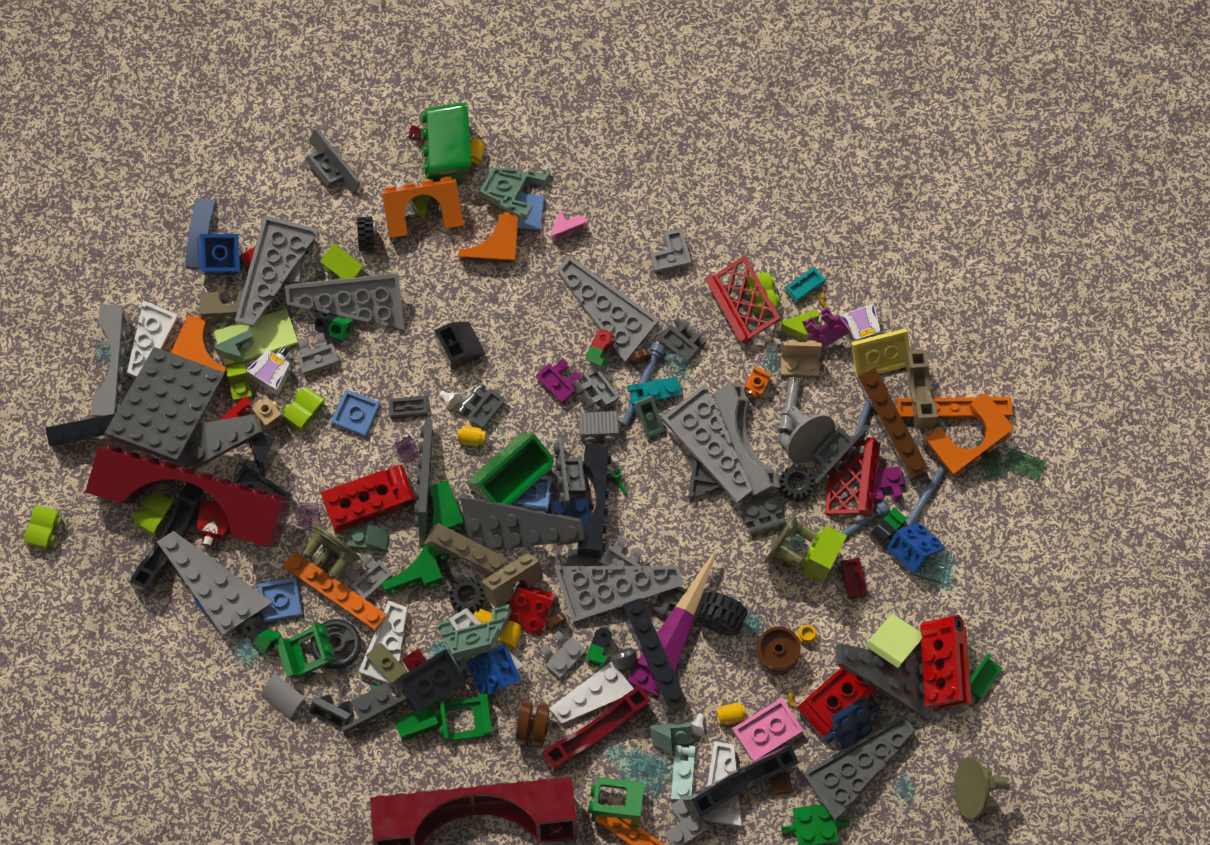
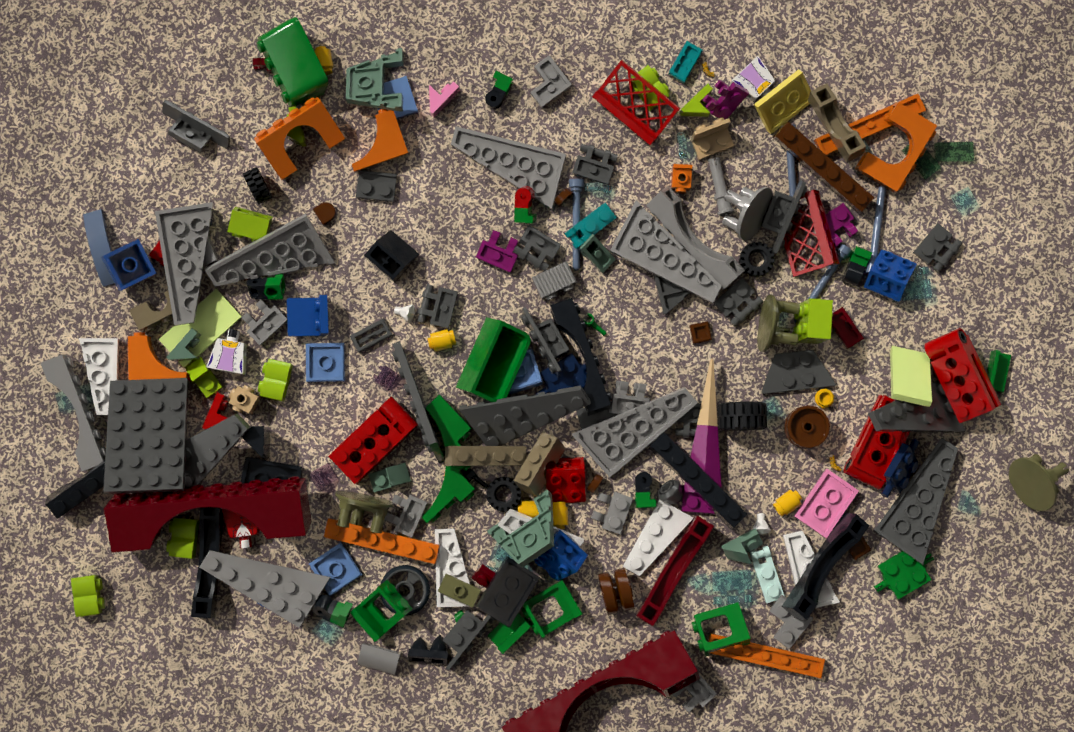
camera: 20 degrees left, 15 degrees up
(358, 365) = (307, 316): none -> blue bracket
(416, 283) = (325, 212): none -> reddish brown tile
(473, 279) = (376, 186): none -> dark grey plate
(622, 242) = (501, 88): none -> leg
(715, 528) = (700, 332): none -> reddish brown tile
(790, 600) = (796, 372): none -> dark grey wing
(970, 537) = (933, 243): none -> dark grey plate
(1015, 509) = (963, 199): none -> clear light blue tile

